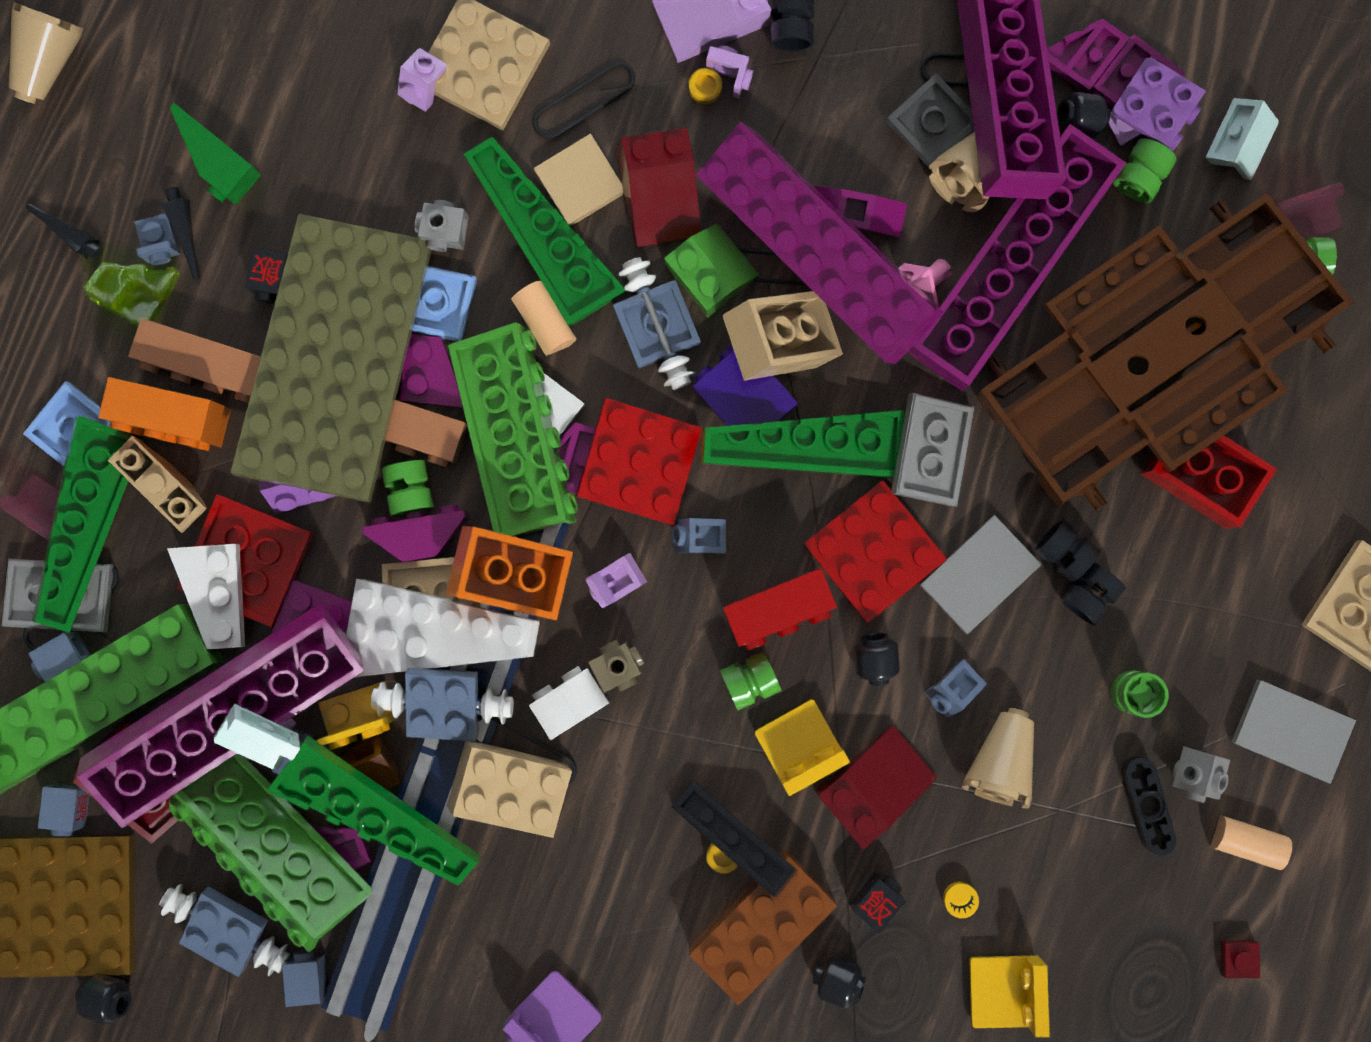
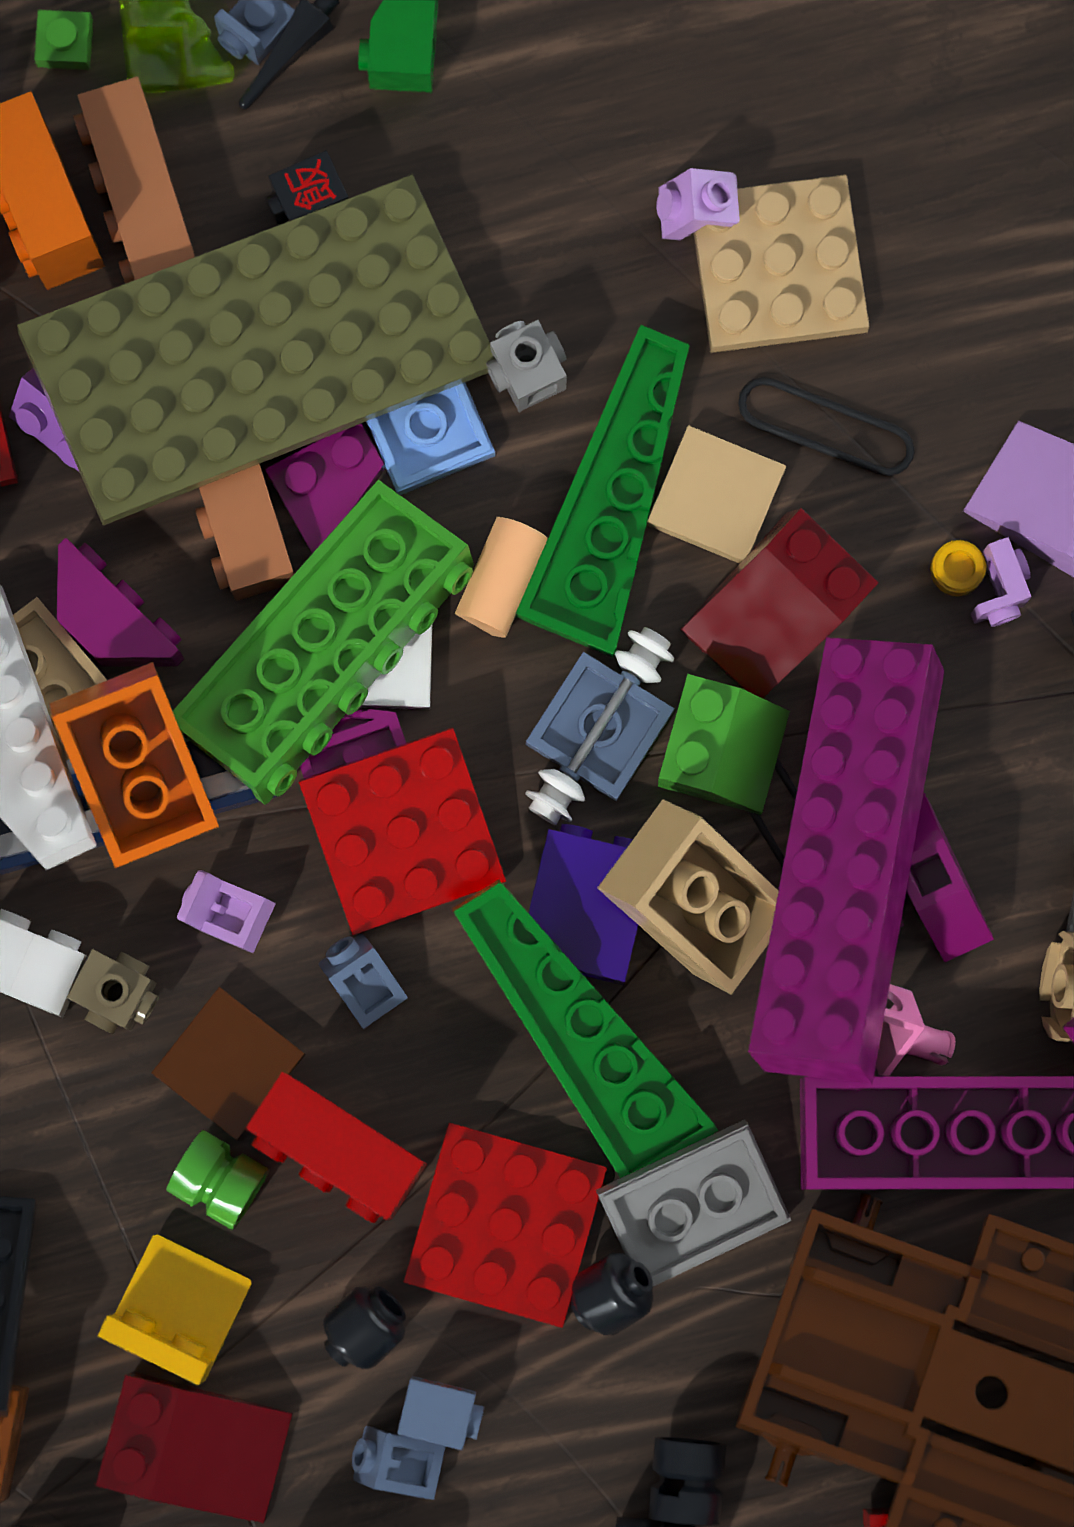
camera: 50 degrees right, 5 degrees down
(92, 344) = (63, 39): none -> bright green plate
(403, 499) = (158, 559): bright green wheel -> none
(694, 634) = (227, 1062): none -> reddish brown tile
(946, 650) = (440, 1413): none -> sand blue brick
(949, 521) = (610, 1294): none -> black head
(980, 574) = (574, 1388): light grey tile -> none

